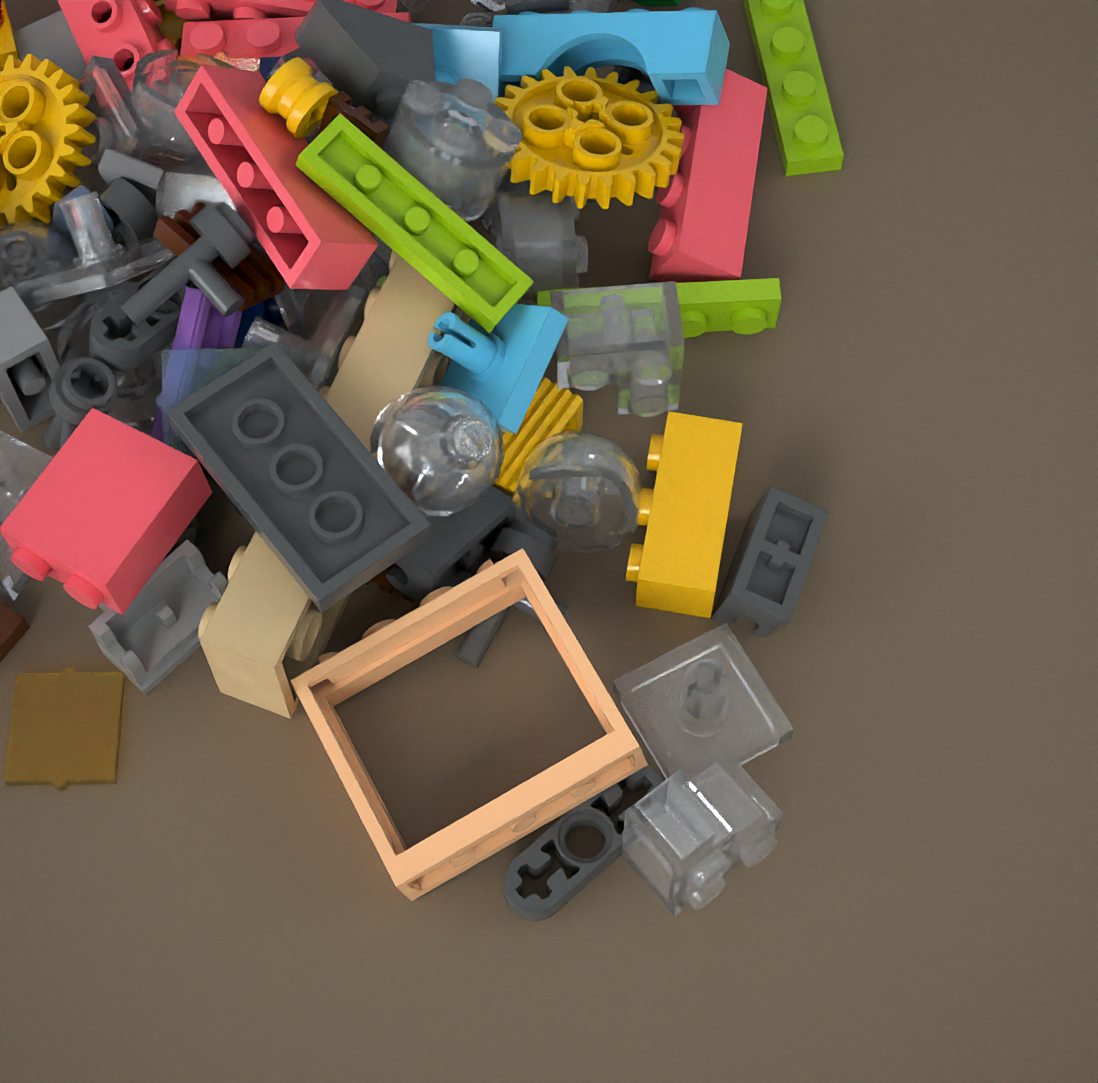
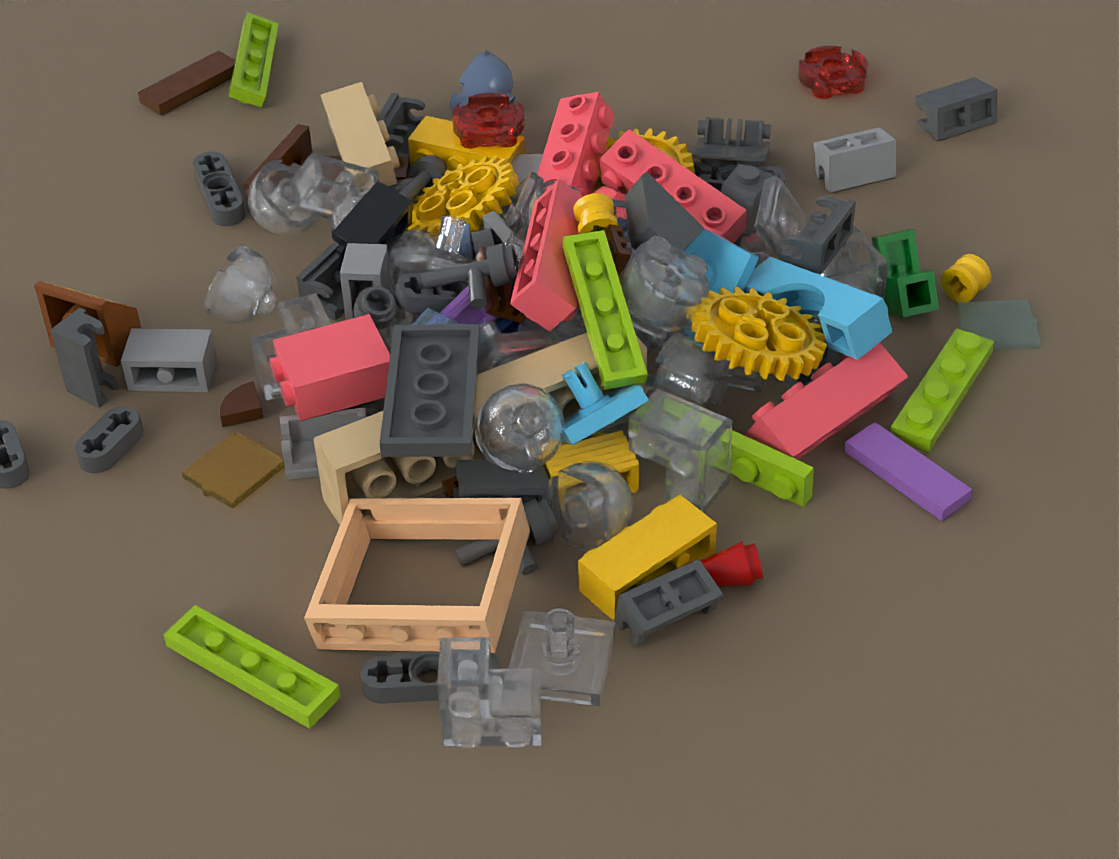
camera: 40 degrees right, 20 degrees down
(367, 988) = (252, 666): none -> lime plate
(787, 461) = (735, 566): none -> red cone
(848, 209) = (908, 471): none -> medium lavender tile

